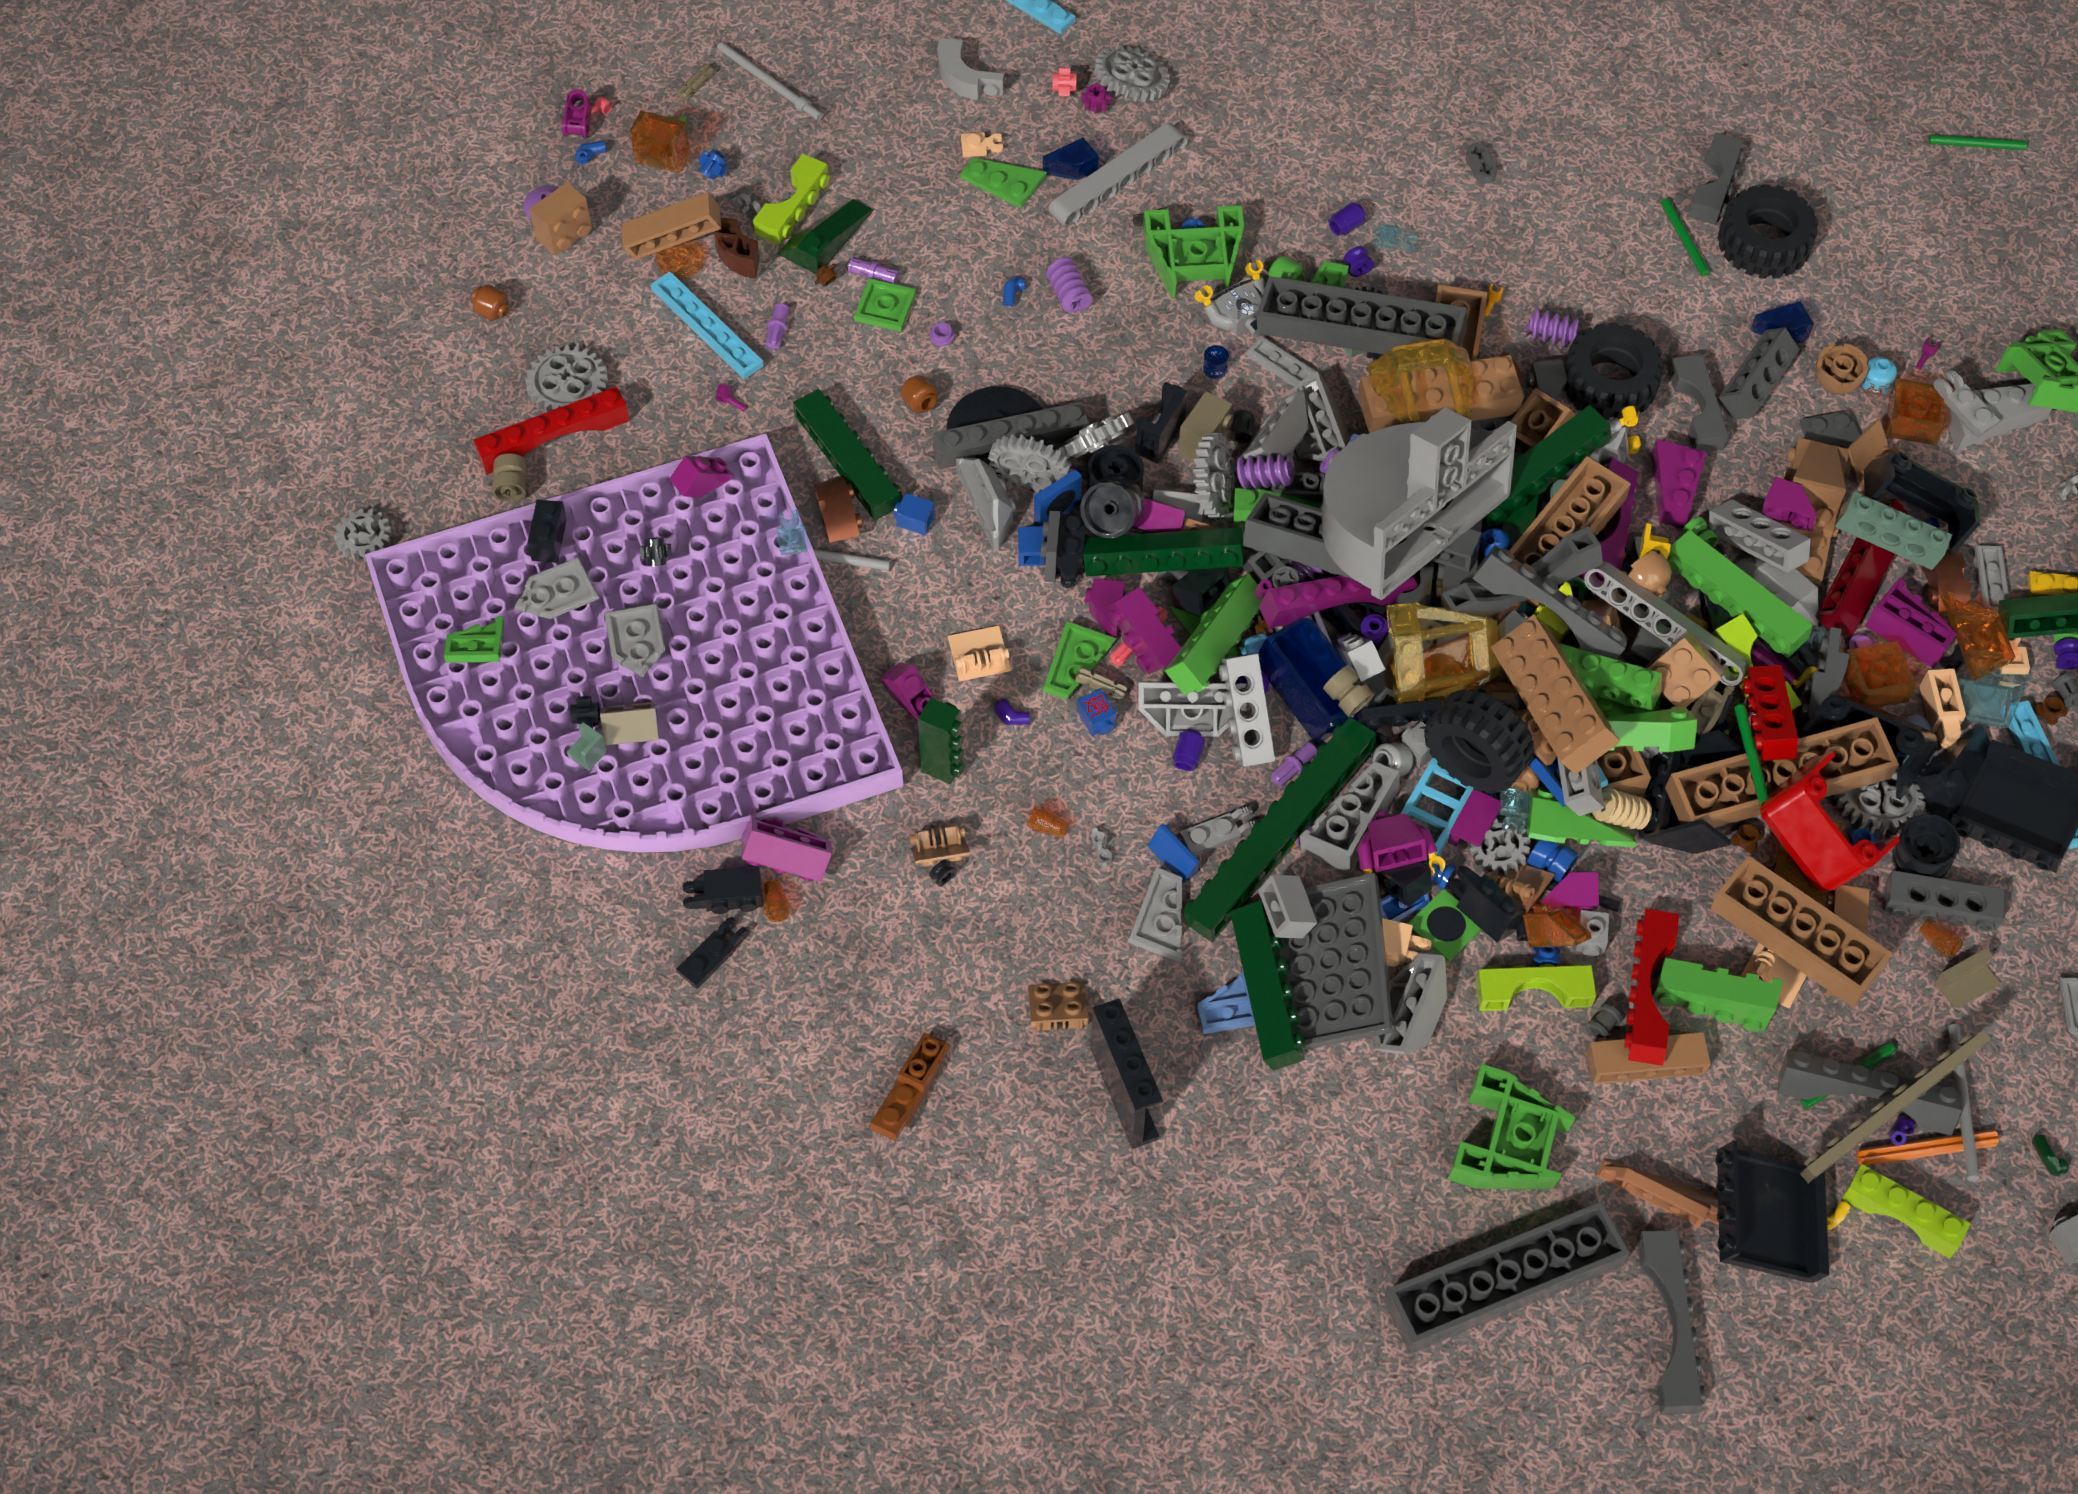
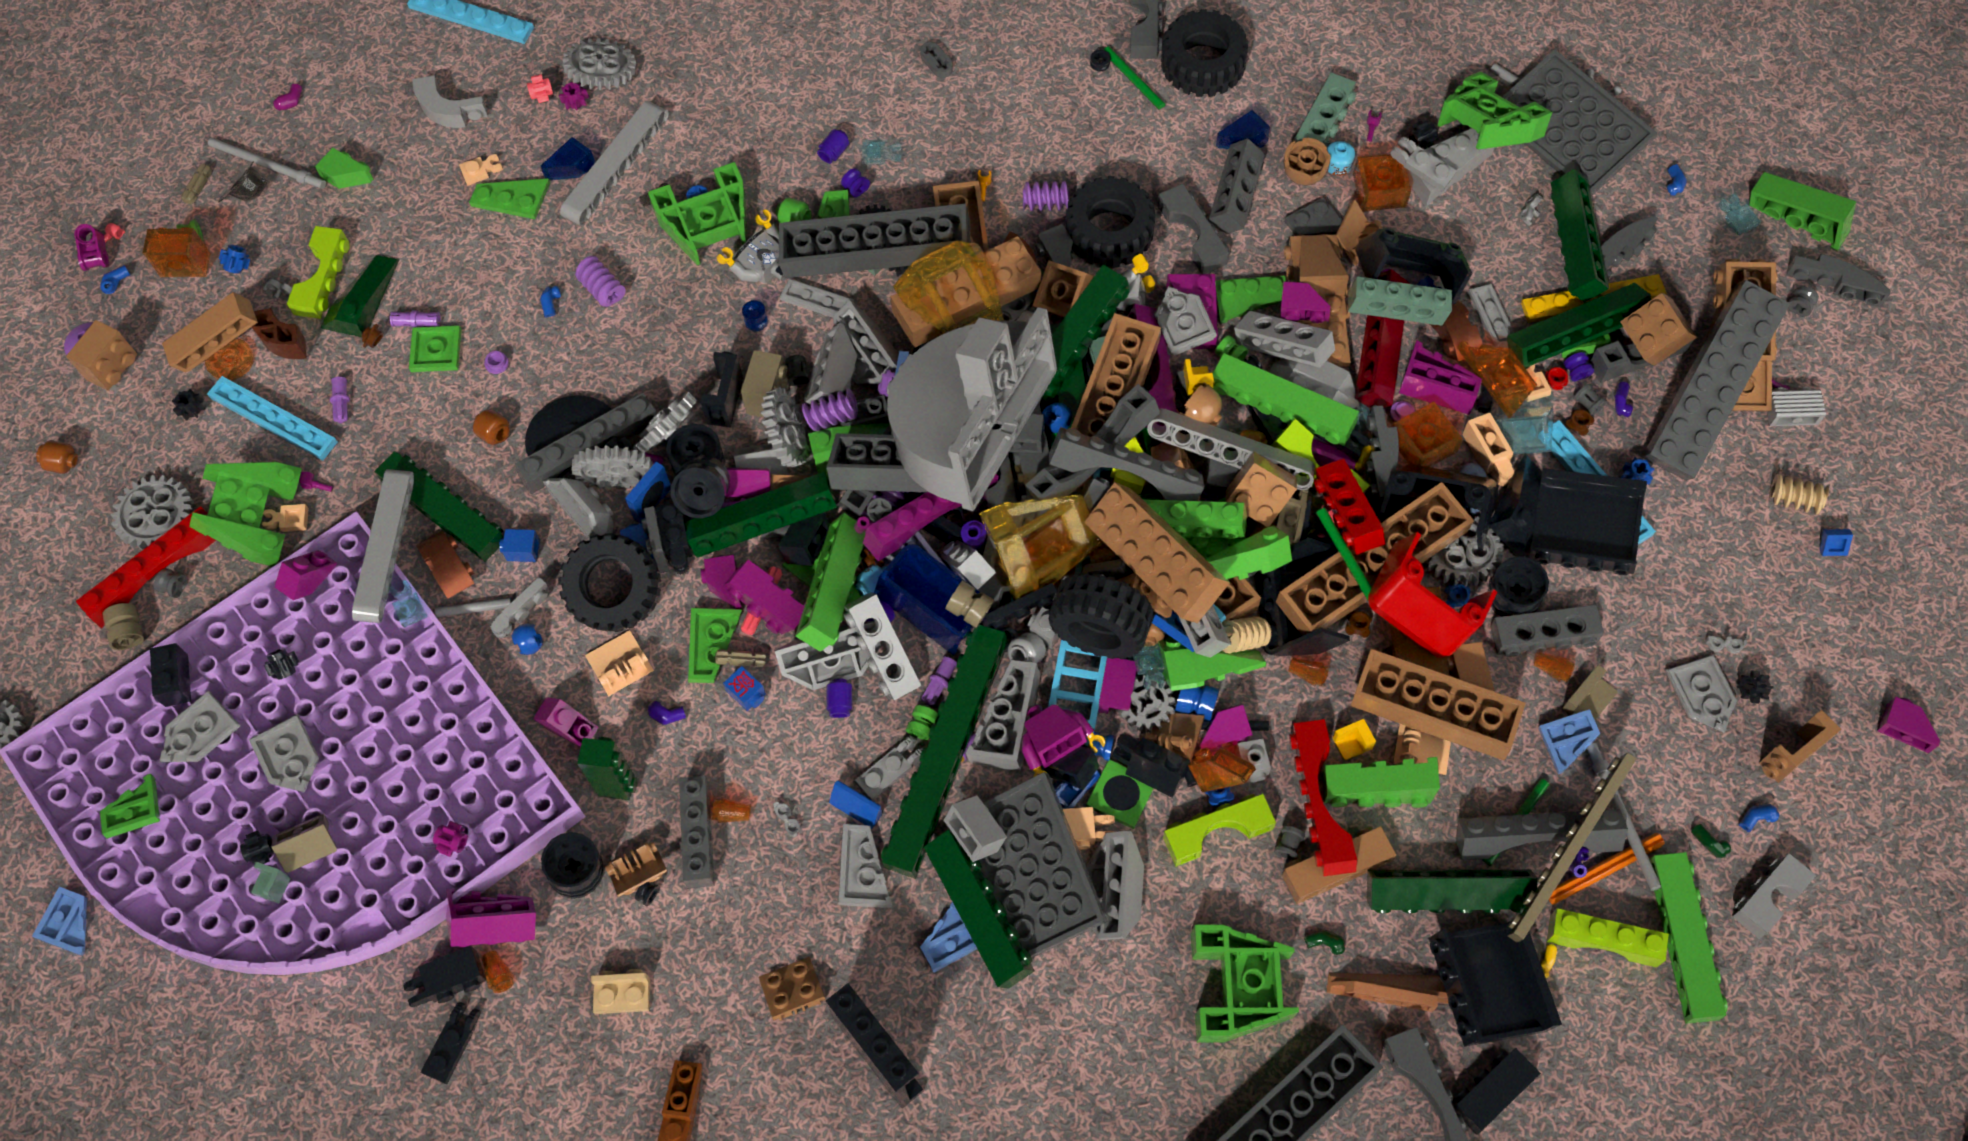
camera: 15 degrees left, 5 degrees up
(379, 731) = (64, 922): none -> medium blue wing
(565, 450) = (169, 582): none -> dark grey wheel
(629, 289) = (188, 404): none -> black gear
(654, 397) = (240, 504): none -> bright green wedge
(696, 425) = (288, 519): none -> light nougat plate
(745, 98) = (248, 186): none -> clear smoke piece
(770, 759) = (450, 838): none -> magenta gear
(783, 472) = (383, 546): none -> light grey beam
(809, 26) = (288, 100): none -> magenta arm
(843, 108) = (342, 170): none -> bright green slope
(878, 809) = (564, 852): none -> black wheel
(890, 955) = (621, 992): none -> tan bracket
(895, 602) = (527, 639): none -> blue piece
(896, 572) = (519, 608): none -> light grey hinge
(980, 541) = (577, 573): none -> black tyre
(1008, 831) = (696, 832): none -> dark grey brick
(1262, 798) = (922, 722): none -> bright green wheel
(1612, 1123) = (1327, 938): none -> dark green arm
(1652, 216) = (1105, 62): none -> black bush
(1658, 488) = (1183, 321): none -> light grey tile
(1680, 867) = (1310, 671): none -> clear orange cone
(1704, 944) = (1354, 739): none -> yellow panel
(1725, 482) = (1243, 295): none -> bright green wing
(1739, 1317) = (1495, 1089): none -> black brick
(1753, 1115) = (1449, 890): none -> dark green brick
(1883, 324) = (1328, 109): none -> sand green brick
(1932, 1011) = (1569, 738): none -> medium blue wing
(1978, 376) = (1423, 134): none -> black gear
(1991, 1238) = (1687, 939): none -> bright green brick
(2040, 654) = (1558, 373): none -> red plate

